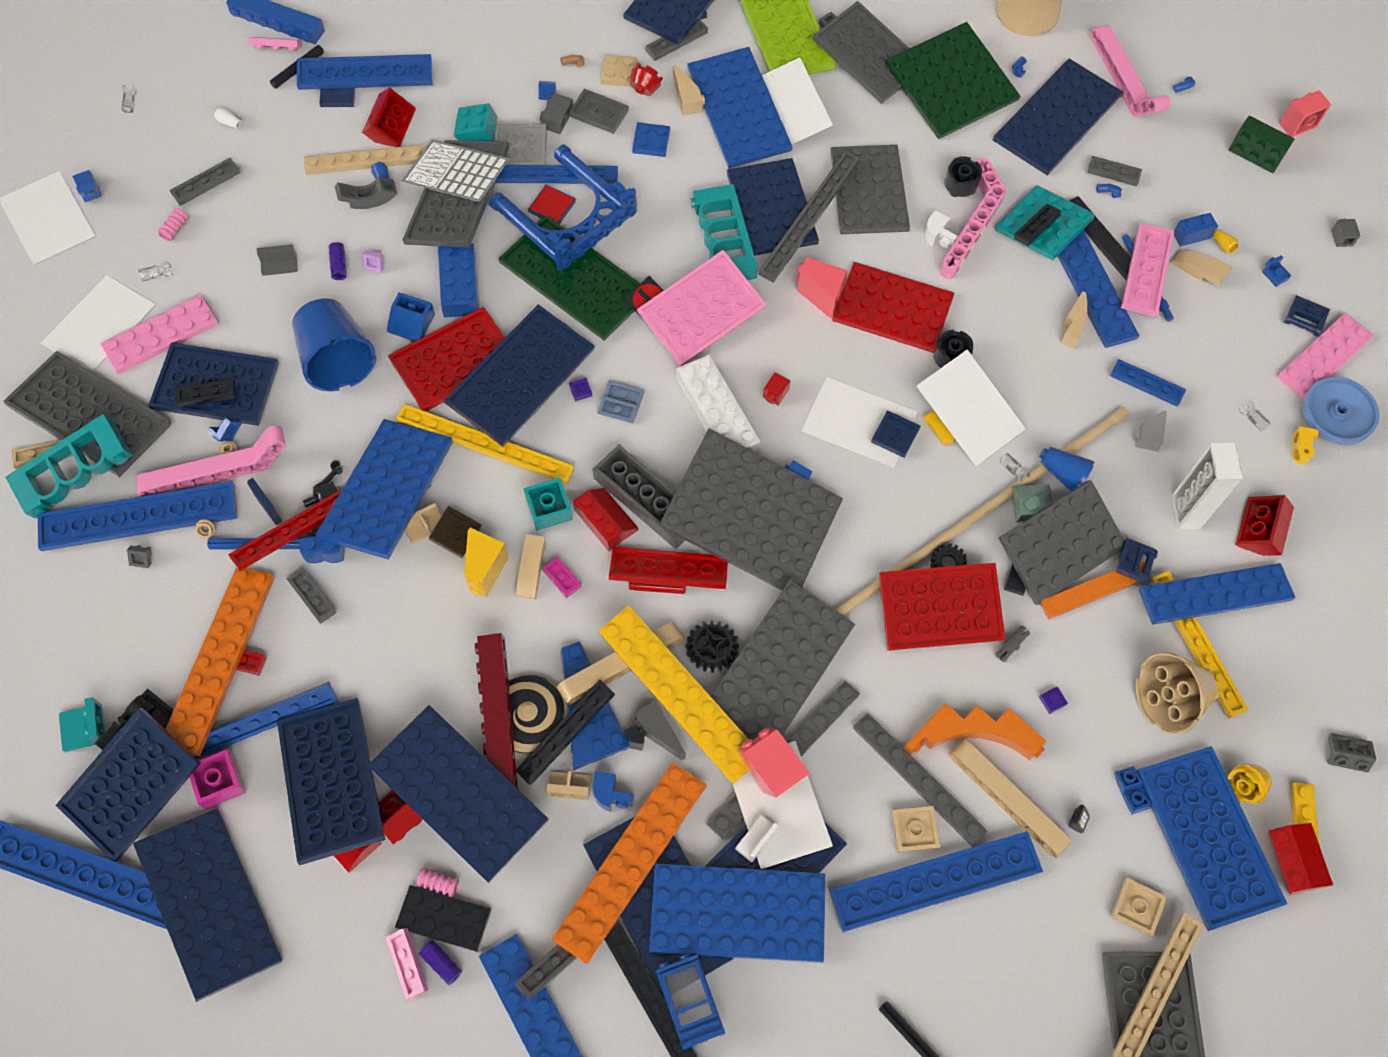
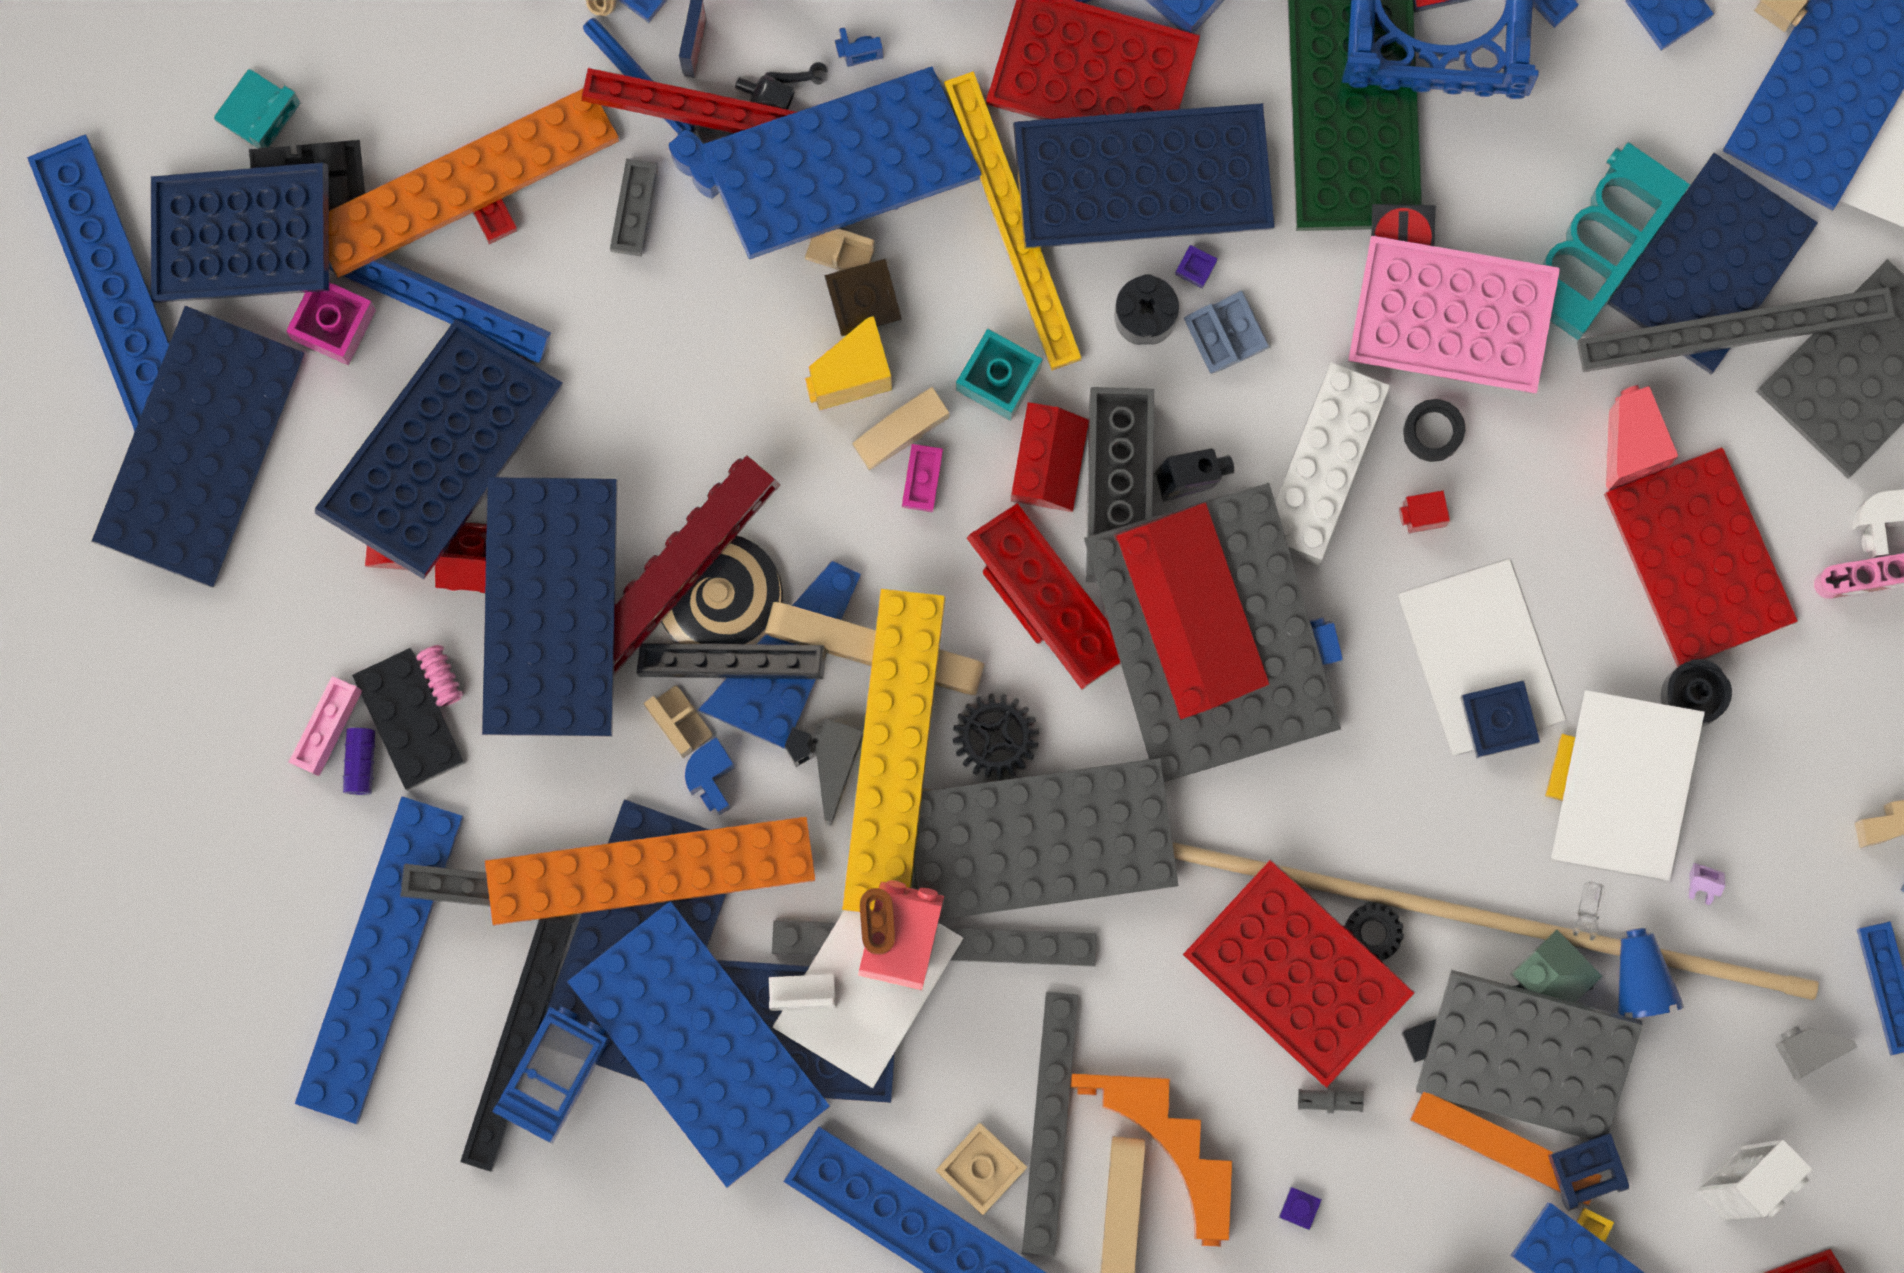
camera: 50 degrees right, 15 degrees up
(345, 442) = (861, 51): none -> blue bracket
(580, 422) = (1147, 328): none -> black brick
(672, 458) = (1191, 473): none -> black torso
(736, 505) = (1192, 610): none -> red slope
(743, 345) = (1430, 406): none -> black tyre
(759, 763) = (877, 922): none -> dark orange plate
(1039, 413) = (1706, 880): none -> lavender tile

